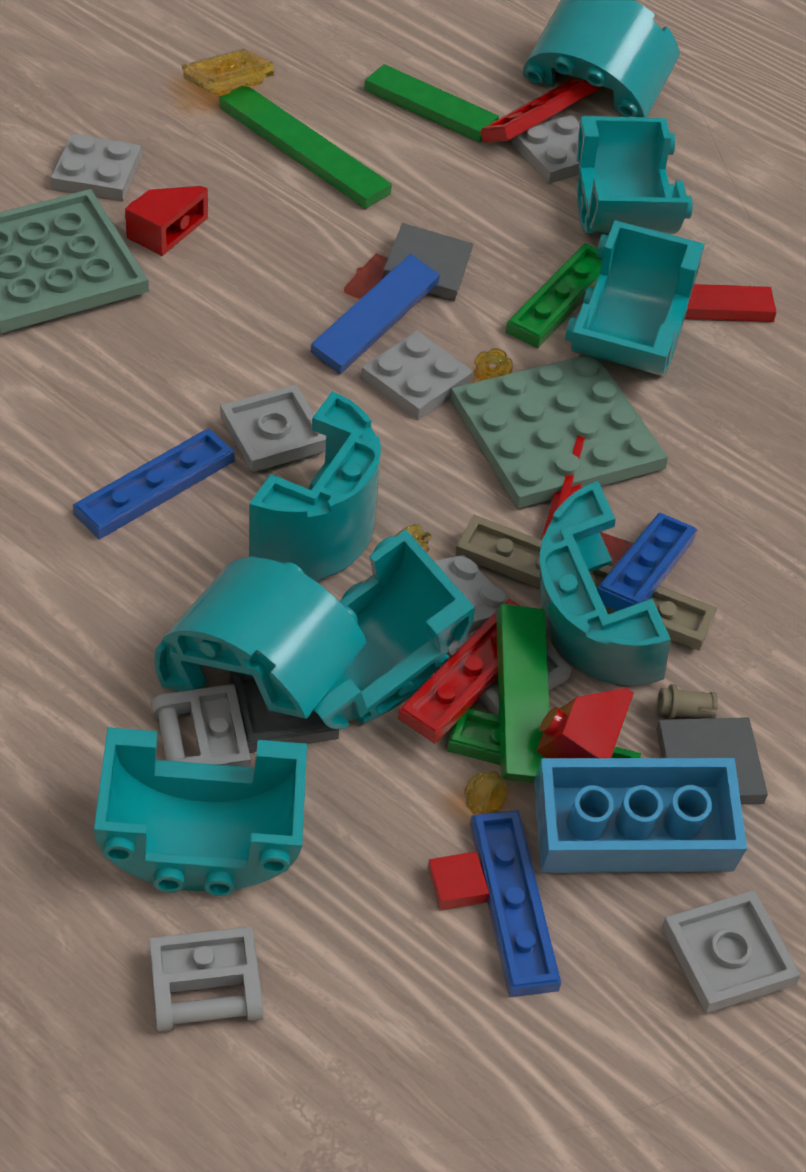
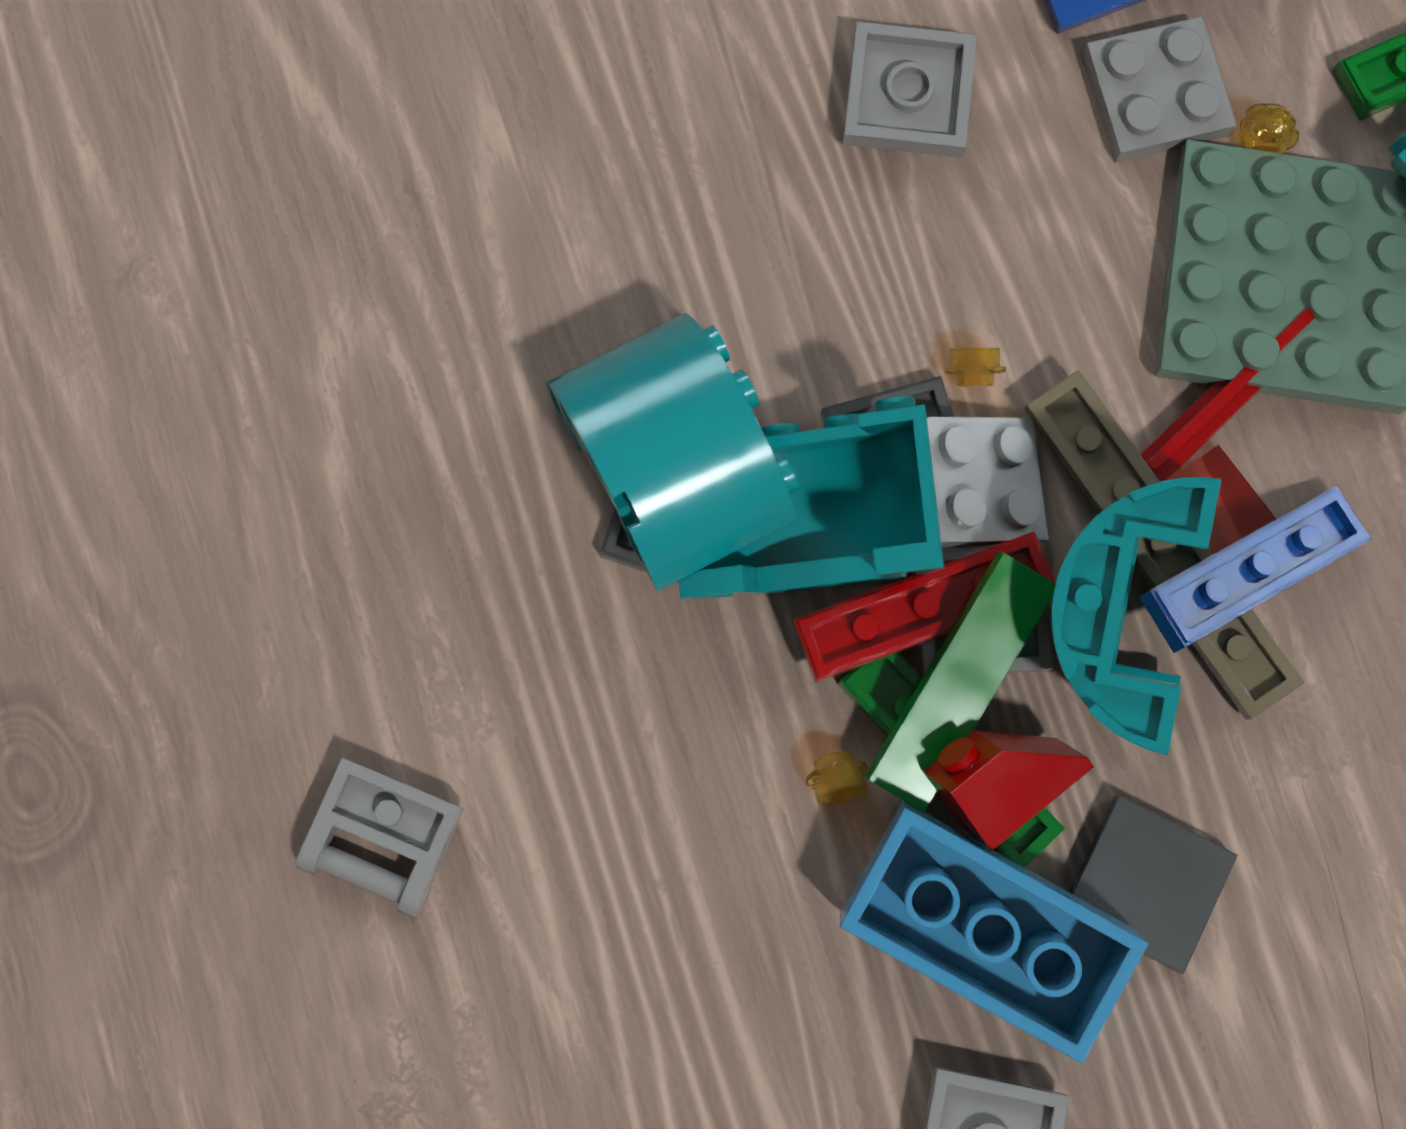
camera: 35 degrees right, 30 degrees up
(153, 483) = (712, 98): blue tile -> none
(199, 821) = (469, 636): teal cylinder -> none
(215, 723) = (572, 522): light grey plate -> none
(334, 518) = (899, 288): teal cylinder -> none
(458, 880) = (736, 870): red tile -> none
(515, 904) = (784, 934): blue tile -> none
(686, 703) = (1181, 799): dark tan pin -> none

